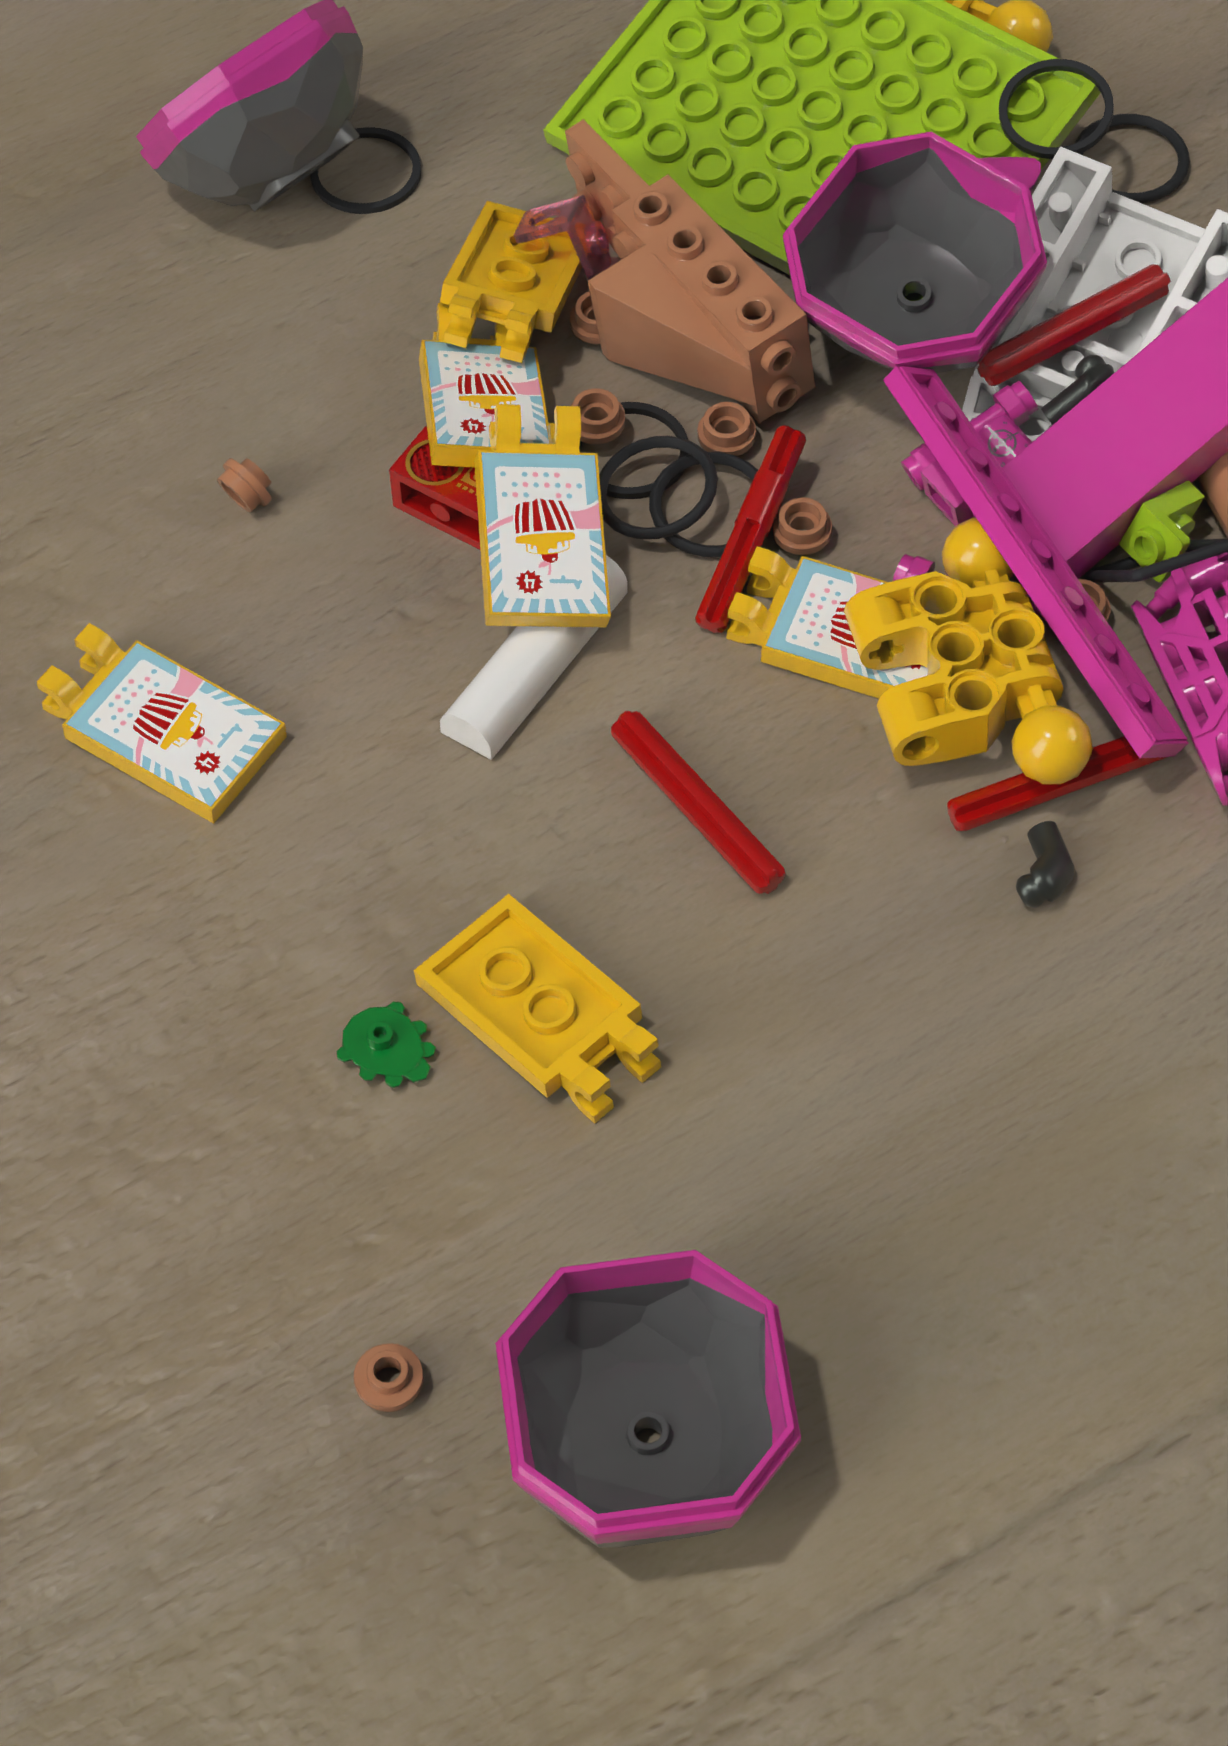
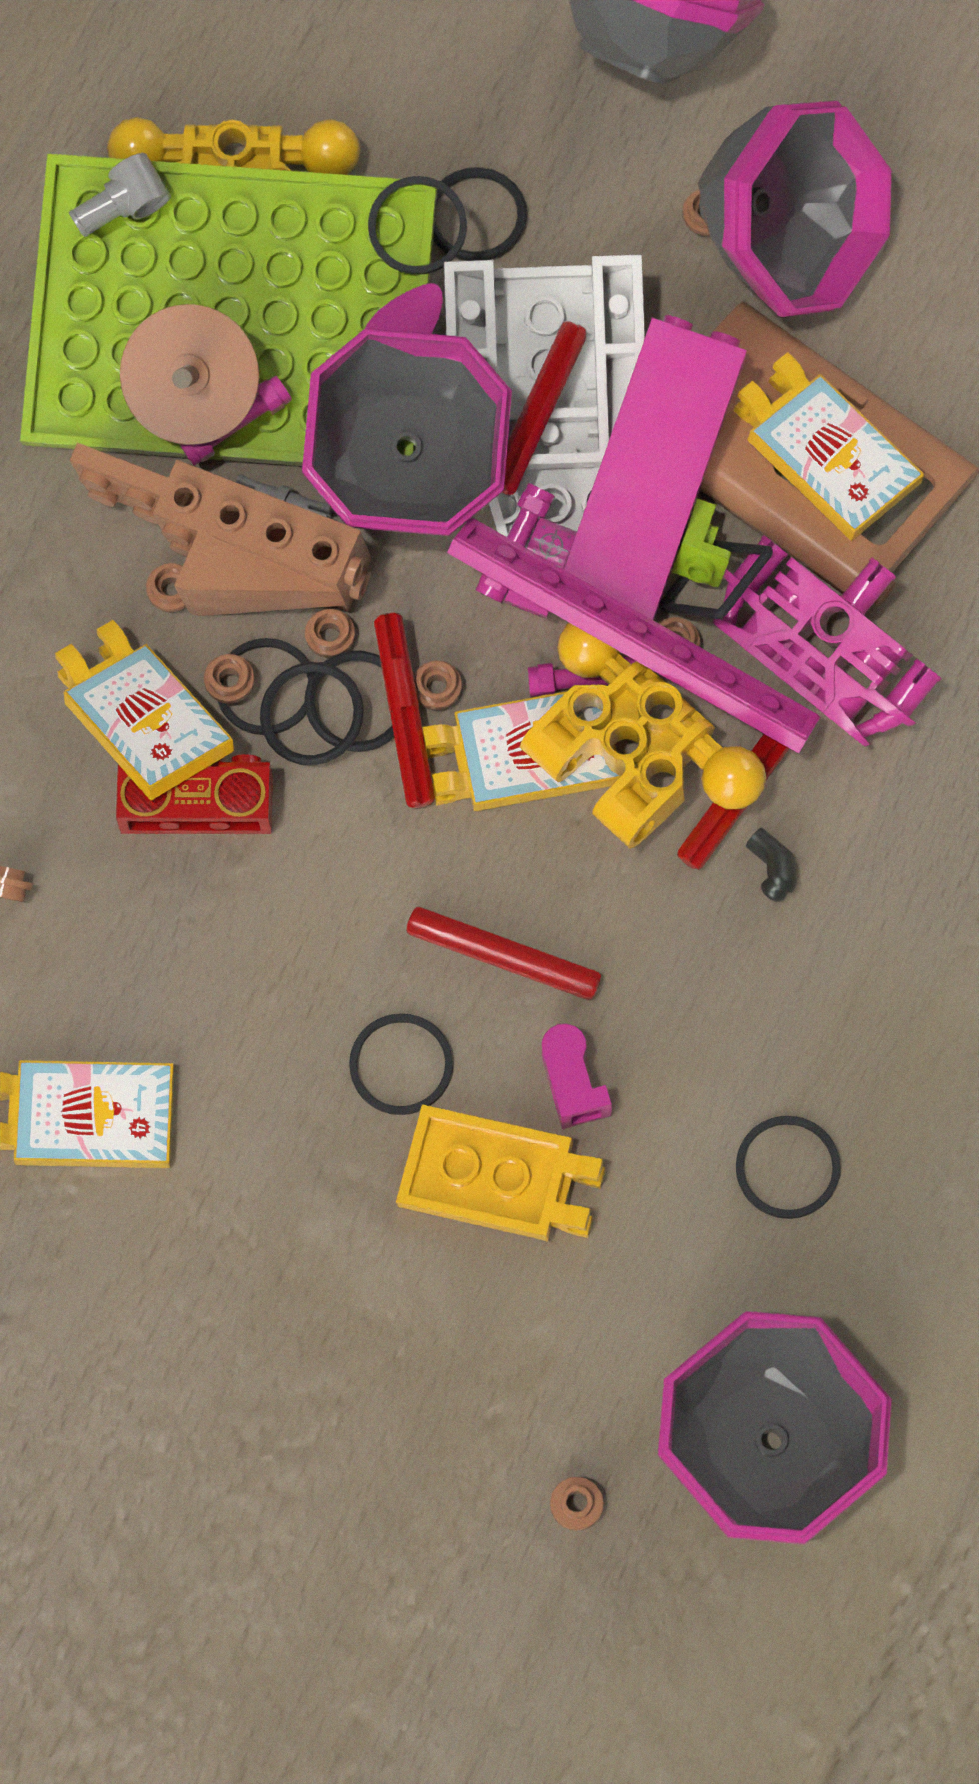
camera: 30 degrees left, 15 degrees up
(387, 1045) = (412, 1266): green piece -> none
(508, 280) = (91, 590): yellow tile -> none
(518, 802) = (400, 1018): none -> black piece
(519, 678) = (312, 900): white brick -> none
(541, 526) = (265, 806): tile -> none
(576, 218) = (111, 524): clear pink bracket -> none
(675, 967) = (568, 1078): none -> dark pink leg
(736, 119) = (189, 374): none -> nougat piece
(757, 198) = (270, 396): none -> dark pink bar
(868, 1117) = (782, 1213): none -> black piece
(1090, 373) = (583, 468): pearl dark grey arm -> none

